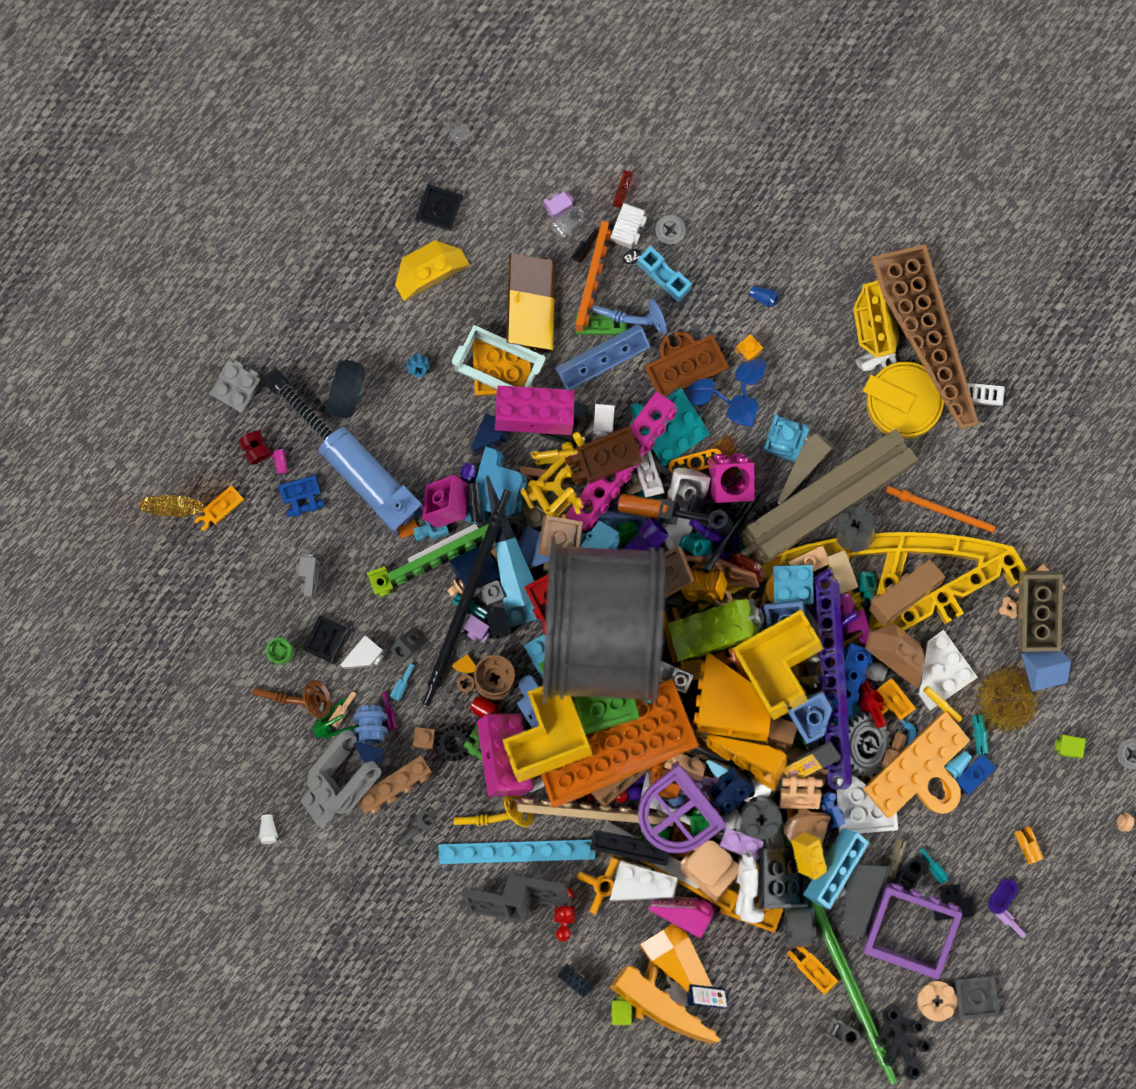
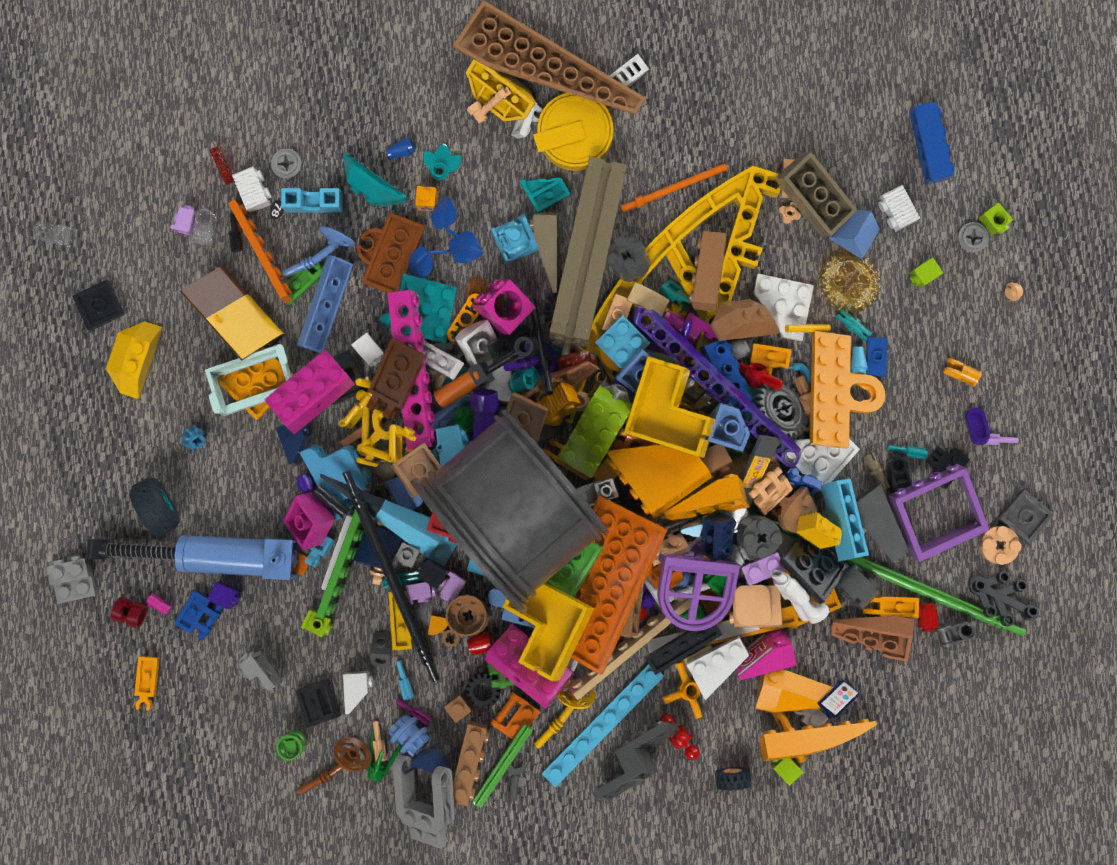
camera: 45 degrees left, 5 degrees up
(171, 506) = (105, 717): clear yellow gear -> none
(333, 499) = (224, 595): none -> dark purple brick
(416, 811) = (502, 765): none -> bright green axle
(431, 647) = (400, 635): none -> yellow plate
(458, 792) = (524, 715): none -> orange plate
(502, 646) = (452, 586): none -> lavender brick
(717, 302) = (370, 184): none -> teal wedge
(787, 331) = (441, 160): none -> teal plate
(789, 984) = (885, 633): none -> nougat wedge
(831, 1002) = (927, 617): none -> red brick
(840, 425) = (545, 192): none -> teal wing
(847, 322) = (479, 111): none -> light nougat brick
(1095, 679) = (898, 208): none -> white brick

